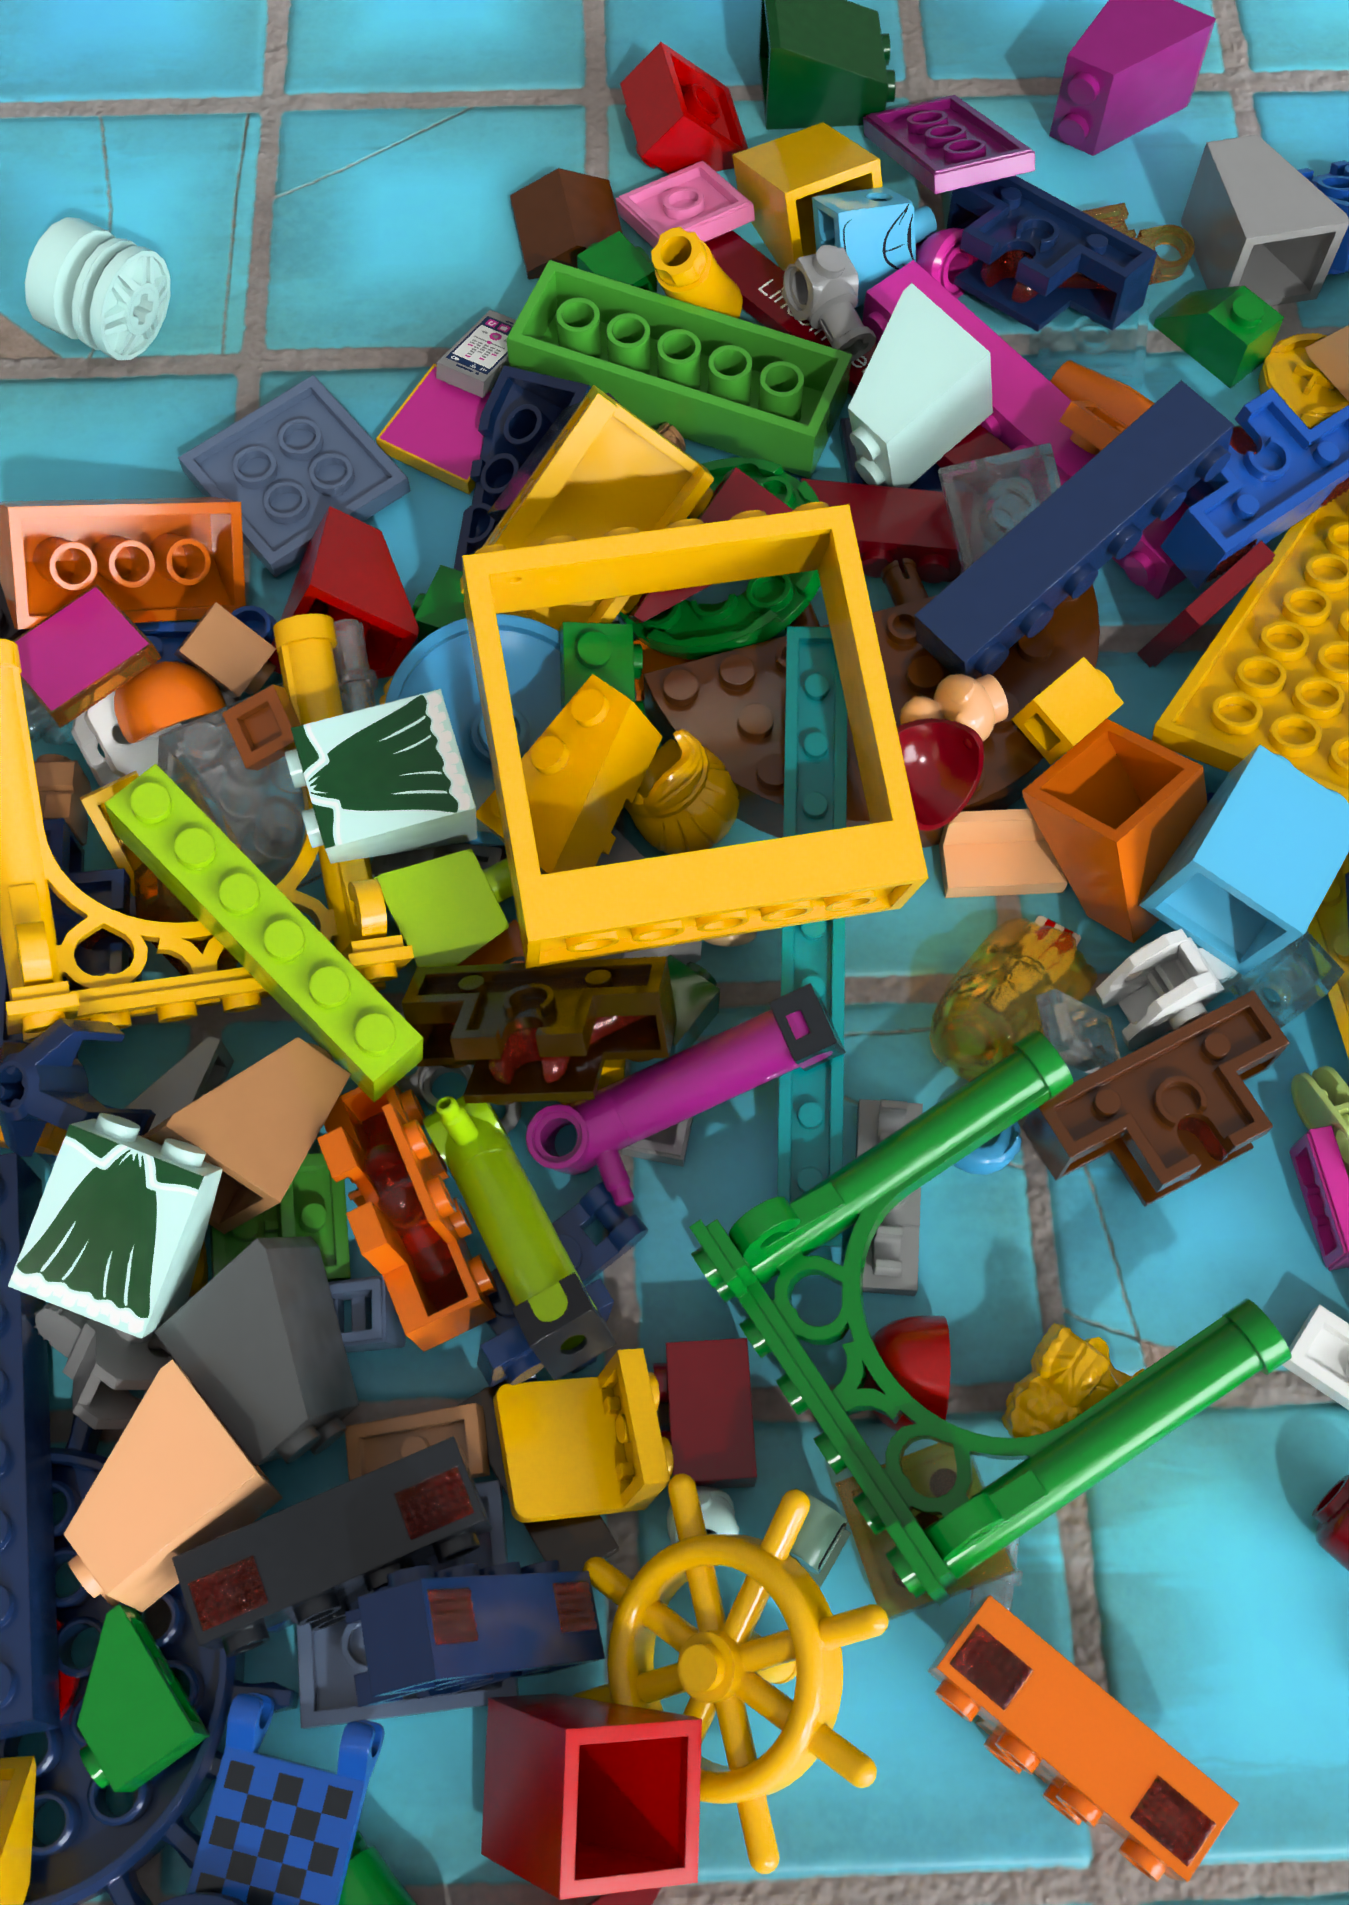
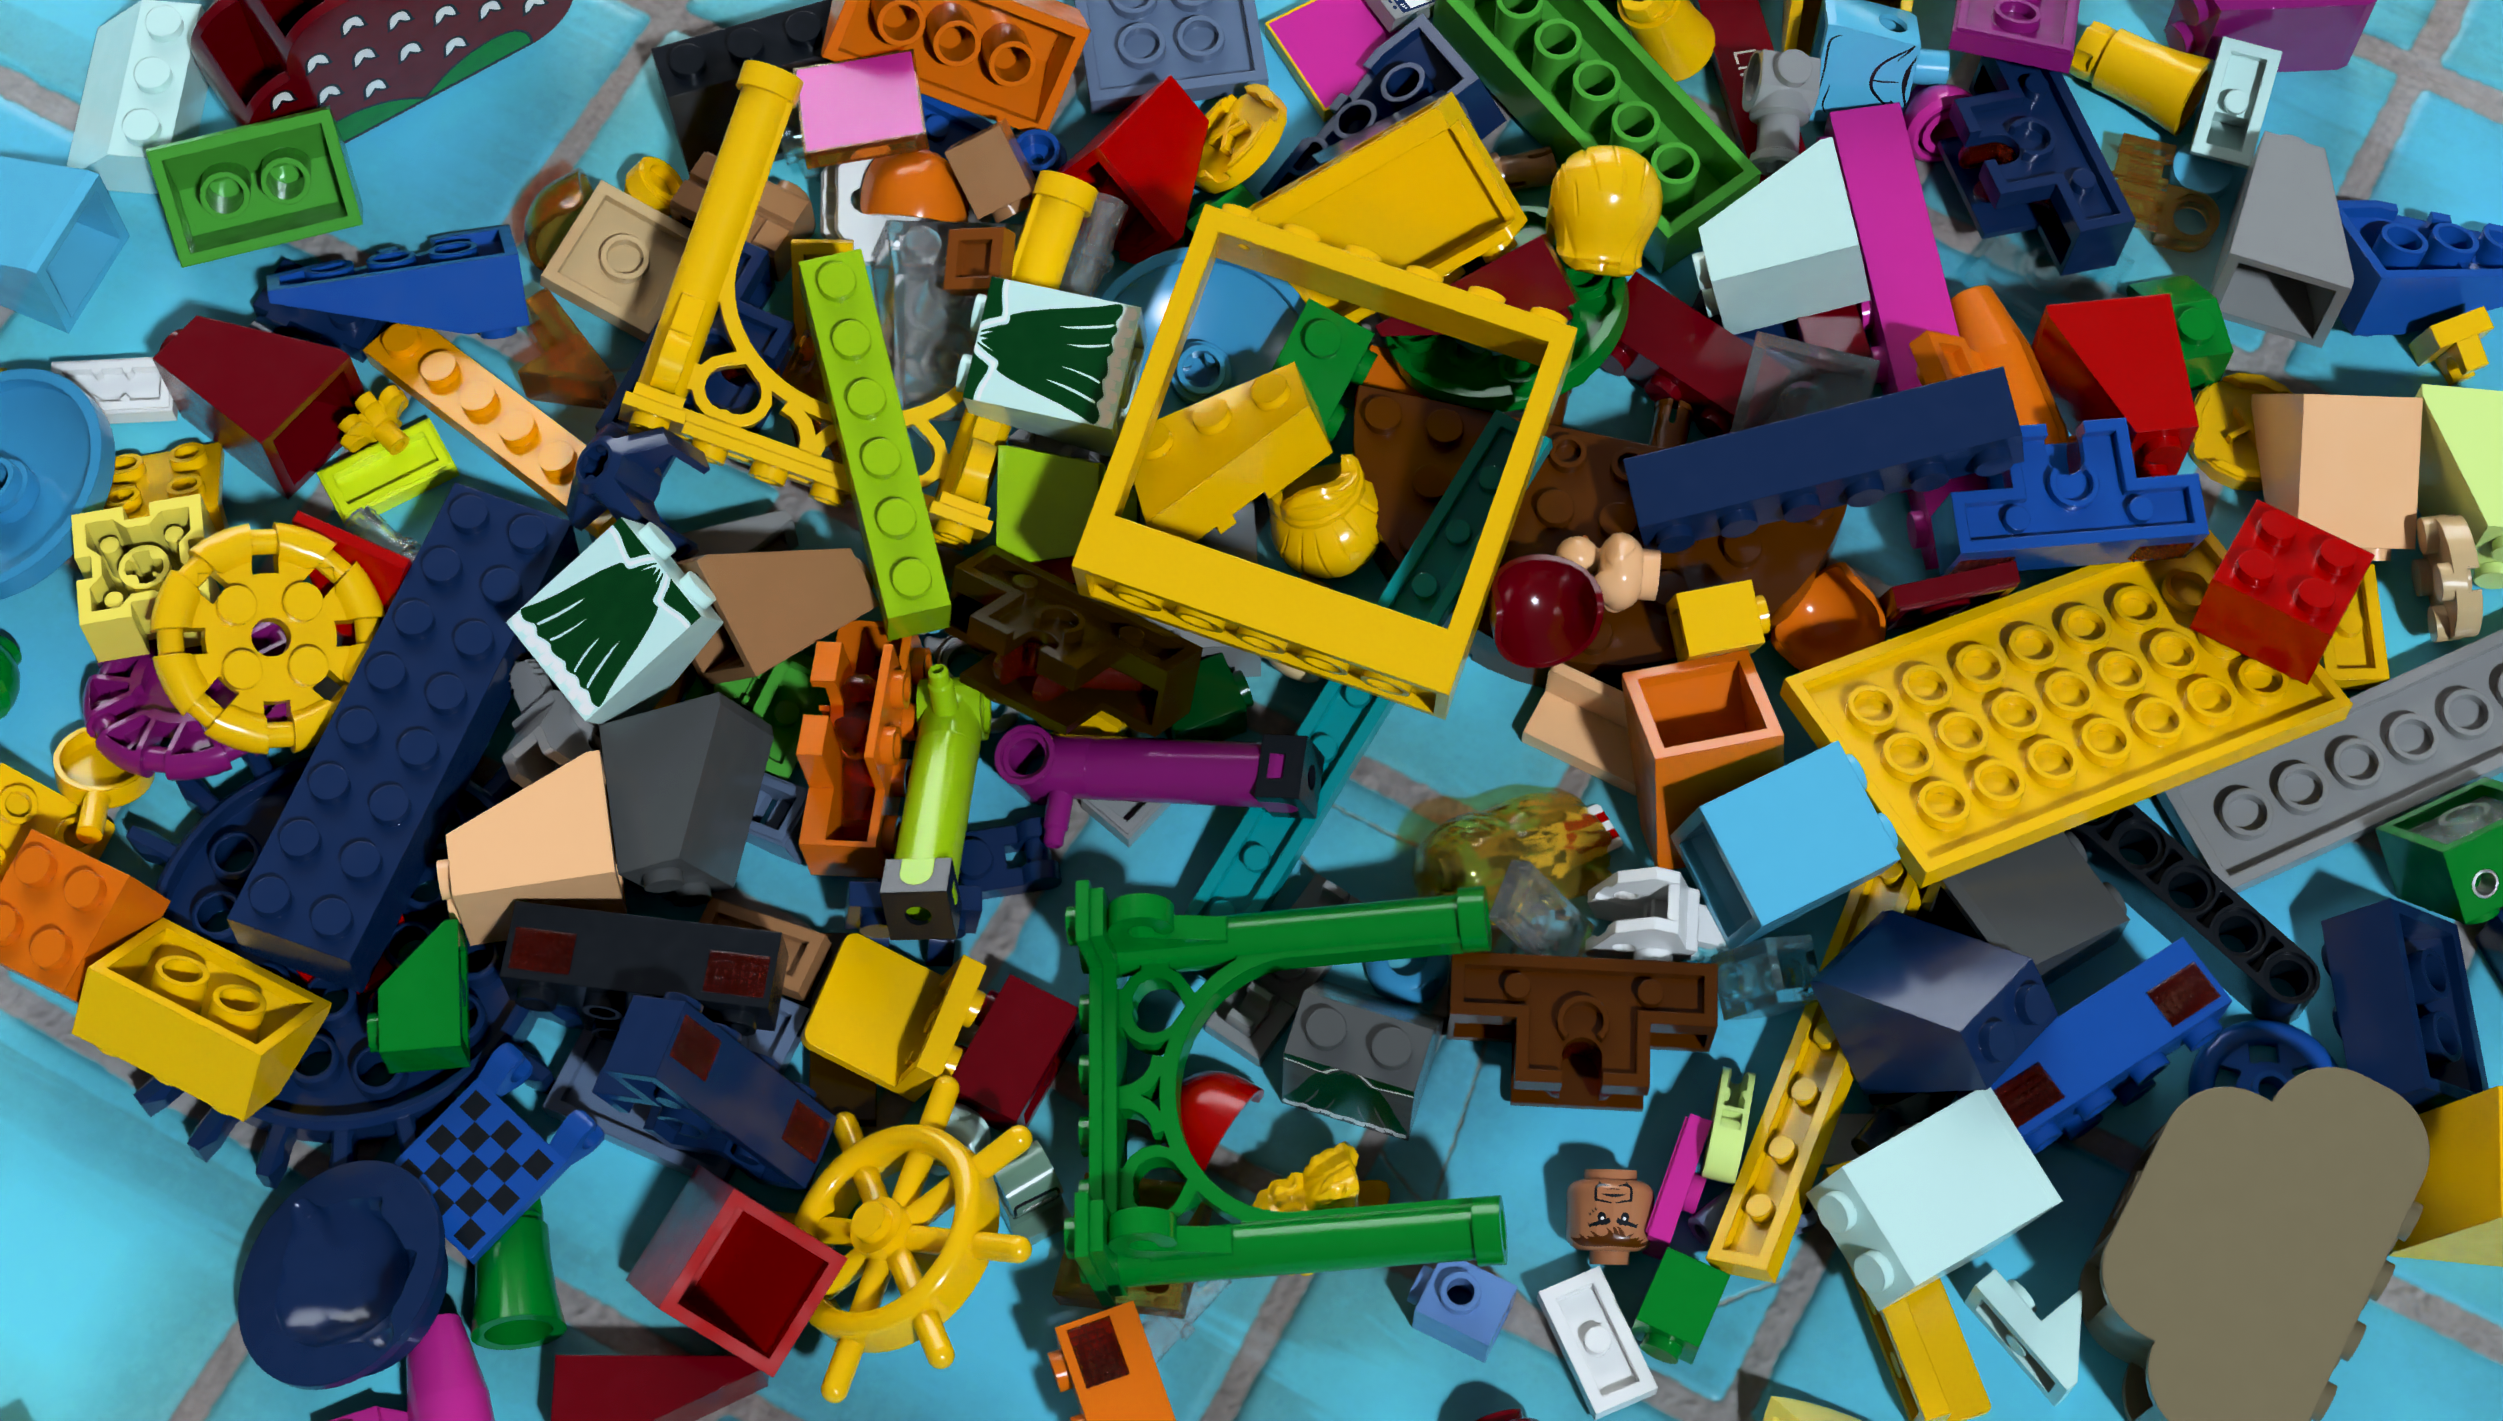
camera: 30 degrees right, 0 degrees up
(417, 529) = (1240, 137): none -> yellow tile
(760, 429) = (1604, 210): none -> yellow hair
(1014, 1235) = (1359, 1058): none -> dark grey slope
(1077, 163) = (2142, 74): none -> yellow plant
(1141, 664) = (1831, 620): none -> orange helmet
(1149, 210) = (2200, 173): none -> medium azure tile
(1150, 148) = (2235, 102): none -> light aqua slope
(1224, 358) = (2121, 364): none -> red slope
(1243, 1418) = (1461, 1306): none -> medium blue brick
(1296, 1255) = (1609, 1215): none -> nougat head

